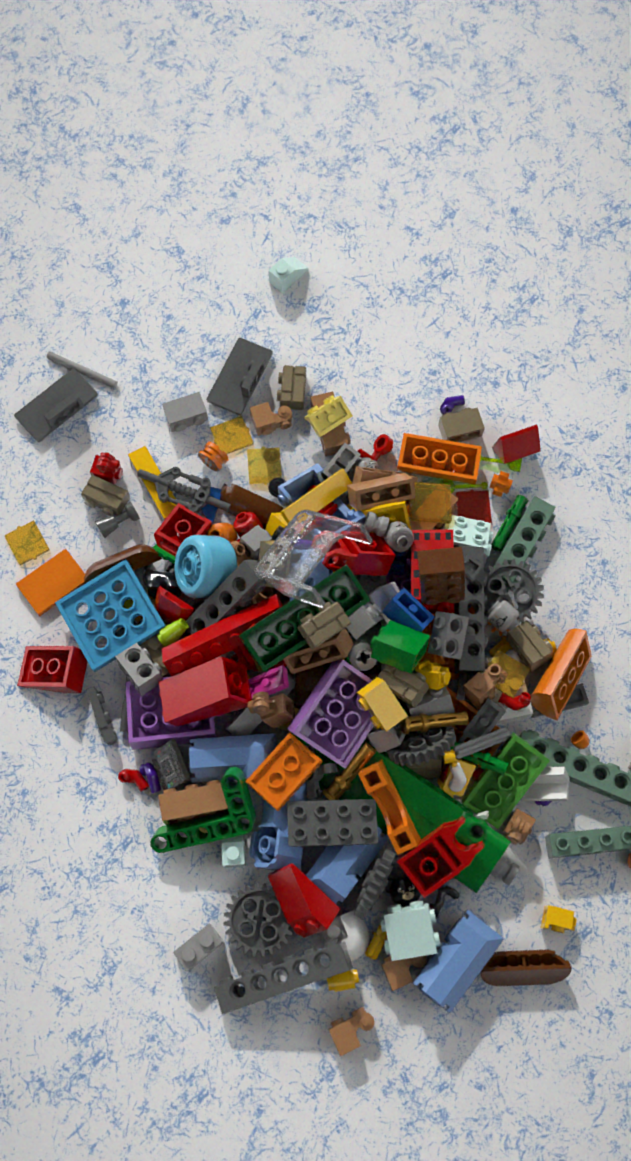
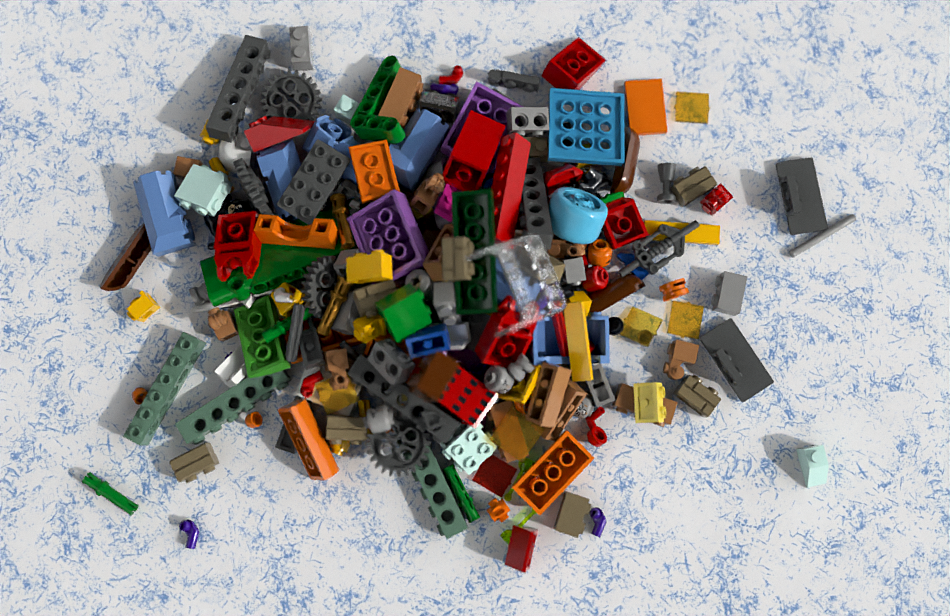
camera: 120 degrees right, 10 degrees up
(172, 632) = (540, 161): lime cone -> none
(345, 1031) = (177, 109): medium nougat brick -> none

